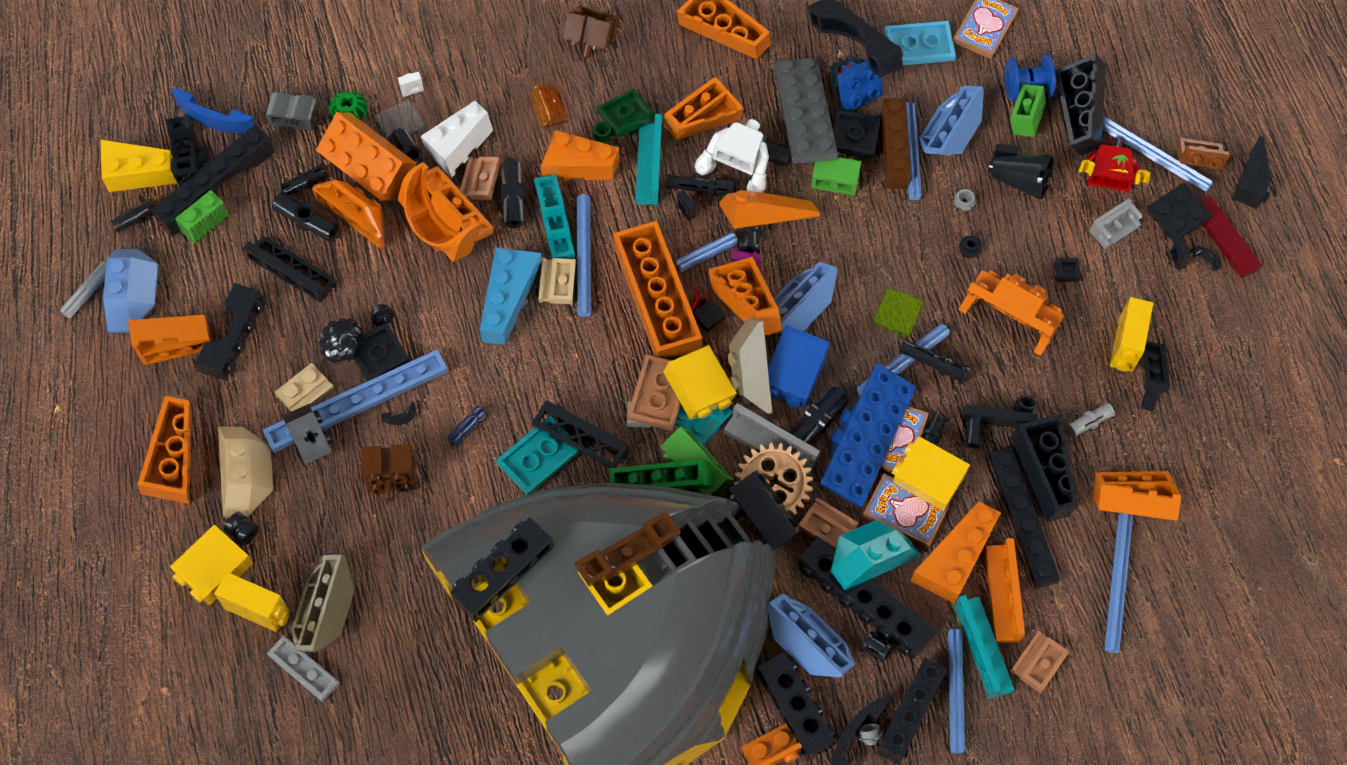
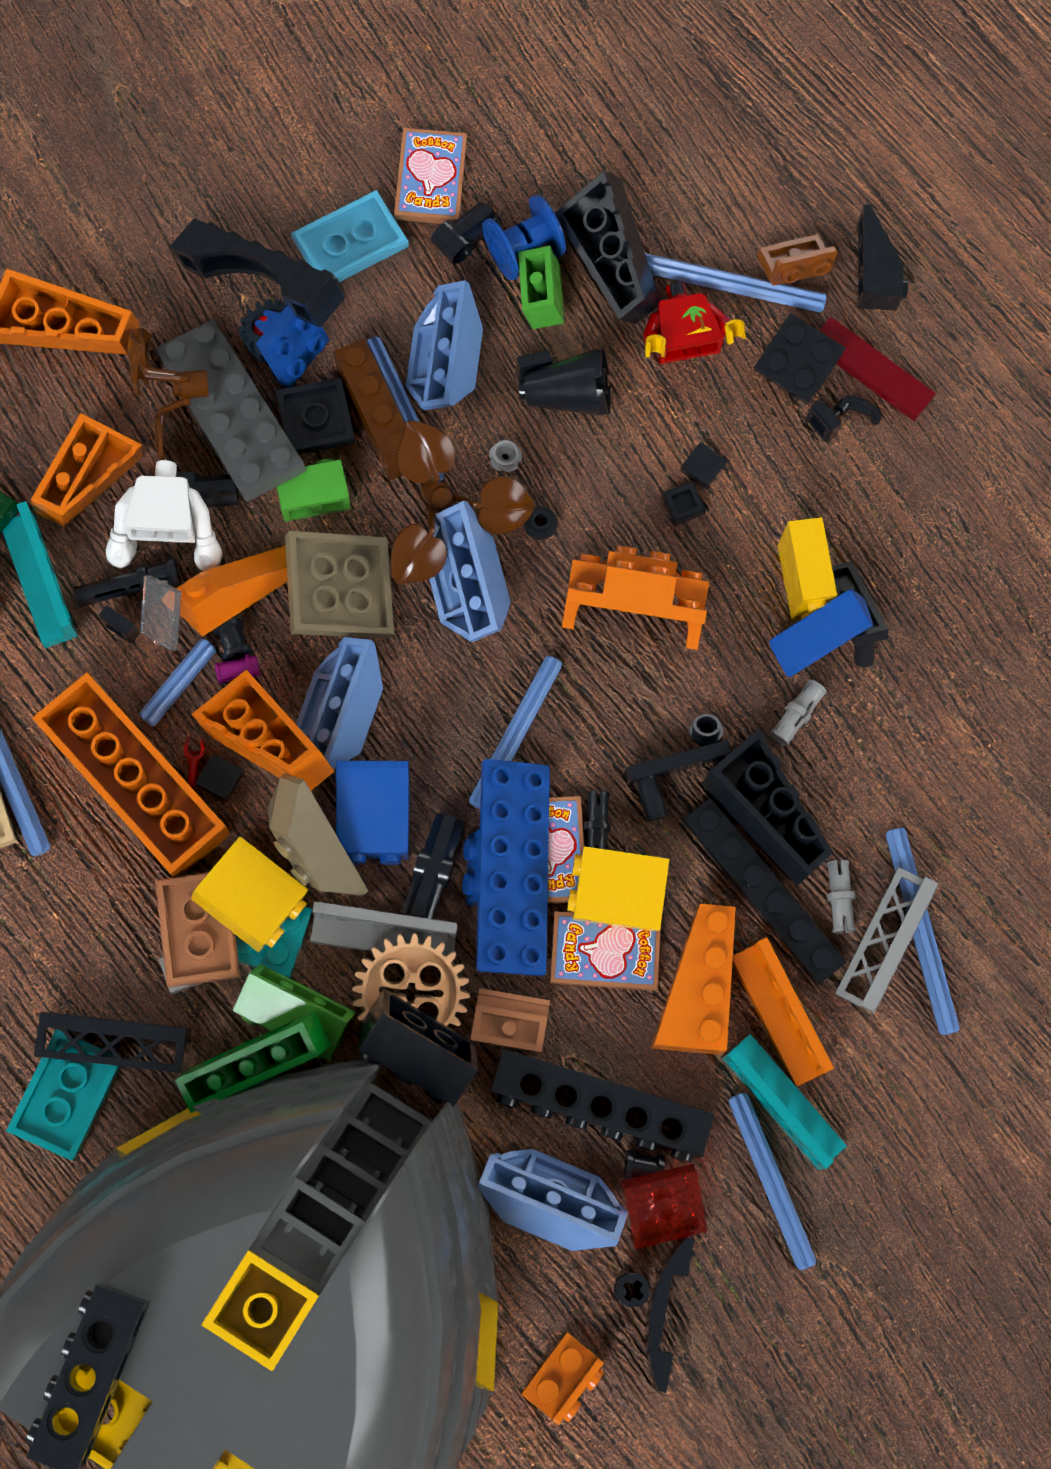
camera: 30 degrees left, 10 degrees up
(628, 551) = (260, 1265): reddish brown slope -> none
(714, 205) = (160, 612): none -> clear piece
(784, 667) = (611, 1348): black brick -> none
(785, 83) = (185, 383): none -> reddish brown plant
(829, 231) = (339, 585): none -> dark tan plate
(839, 707) = (620, 1291): none -> black bush
(869, 553) = (584, 1041): teal wedge -> none
(870, 733) = (685, 1295): light grey plate -> none
(880, 672) = (664, 1206): none -> clear red plate
(898, 312) = (480, 663): clear neon green piece -> none
(911, 255) = (471, 585): none -> medium blue wedge
(911, 711) = (727, 1240): black brick -> none
(914, 172) = (420, 458): none -> reddish brown plant
(944, 365) = (573, 717): black pin -> none
(988, 65) = (459, 237): none -> black piece
(1039, 661) = (864, 1091): nougat plate -> none
(1073, 540) = (841, 896): none -> light grey pin
(1090, 252) = (703, 465): none -> black tile
(1096, 581) = (899, 945): none -> light grey fence
(1116, 224) = (723, 410): light grey hinge -> none
(1125, 372) = (821, 632): none -> blue slope
(1138, 493) = (903, 798): orange wedge -> none

